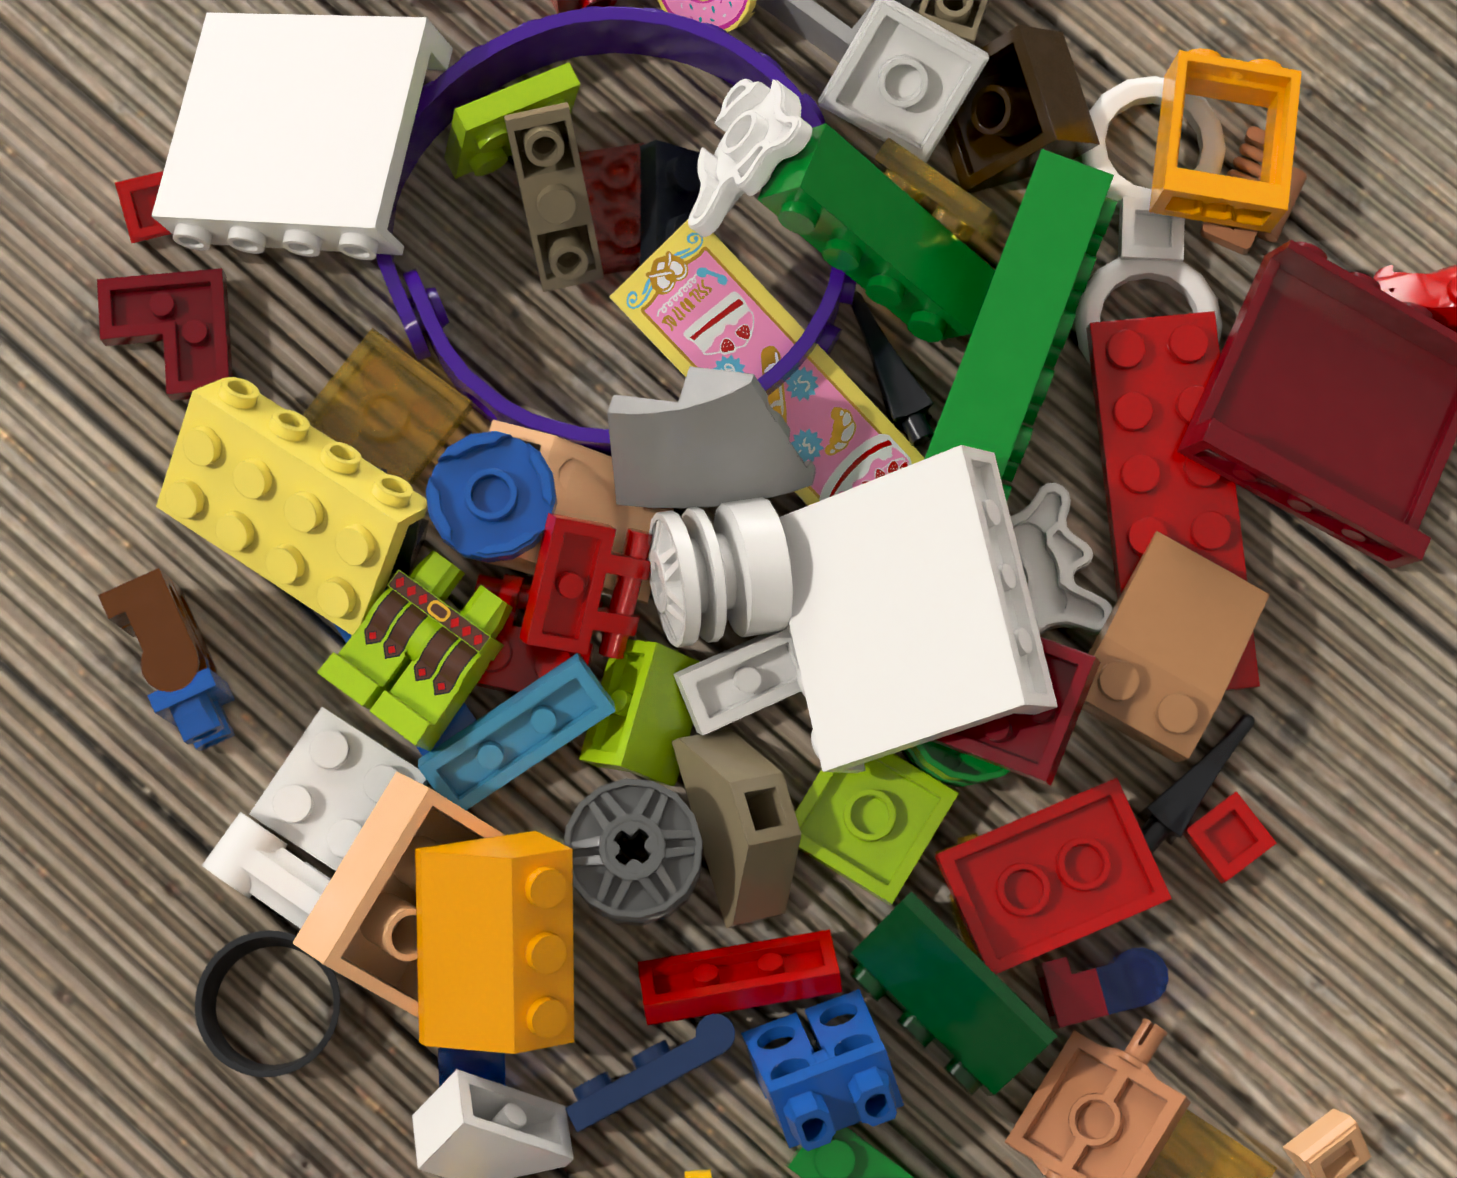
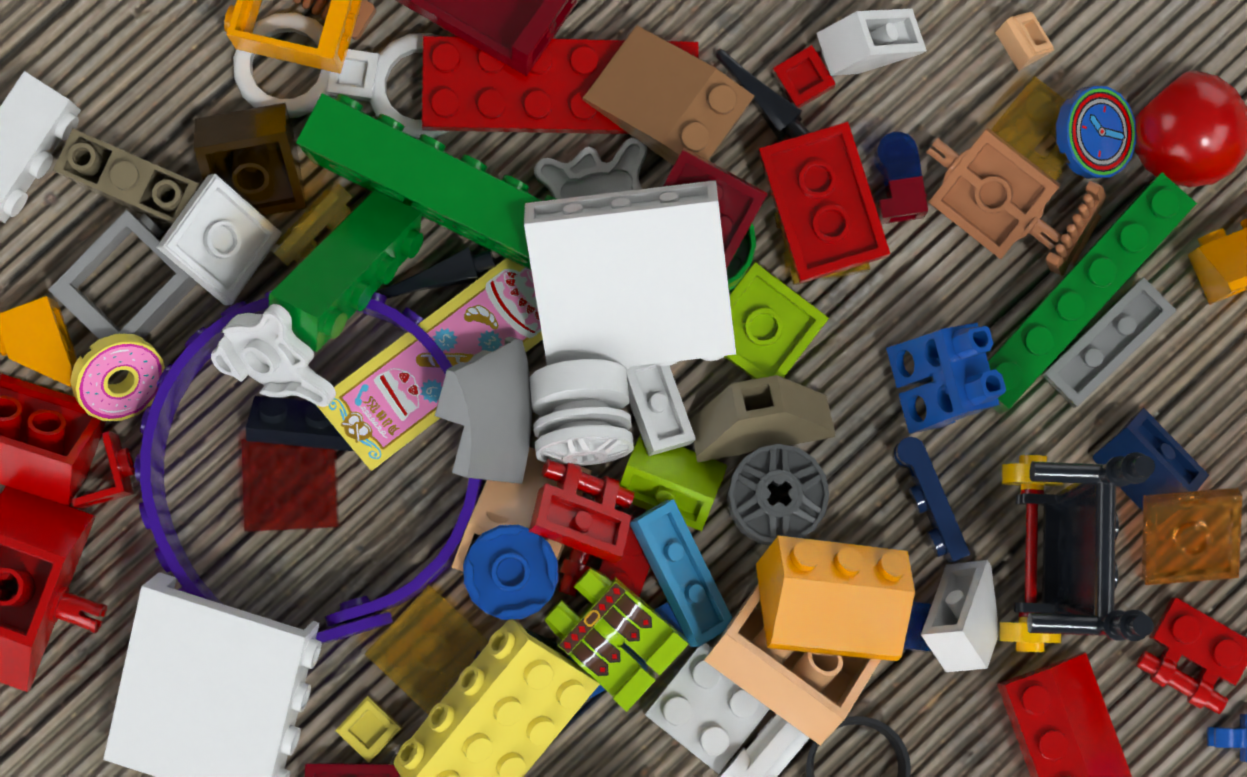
camera: 75 degrees left, 5 degrees up
(276, 349) = (368, 729): none -> light yellow tile
(478, 129) = (218, 520): lime plate -> none
(554, 196) = (288, 505): dark tan slope -> none
(739, 977) = (869, 431): red plate -> none
(949, 998) = (900, 285): dark green slope -> none
(1294, 926) = (870, 40): none -> white slope

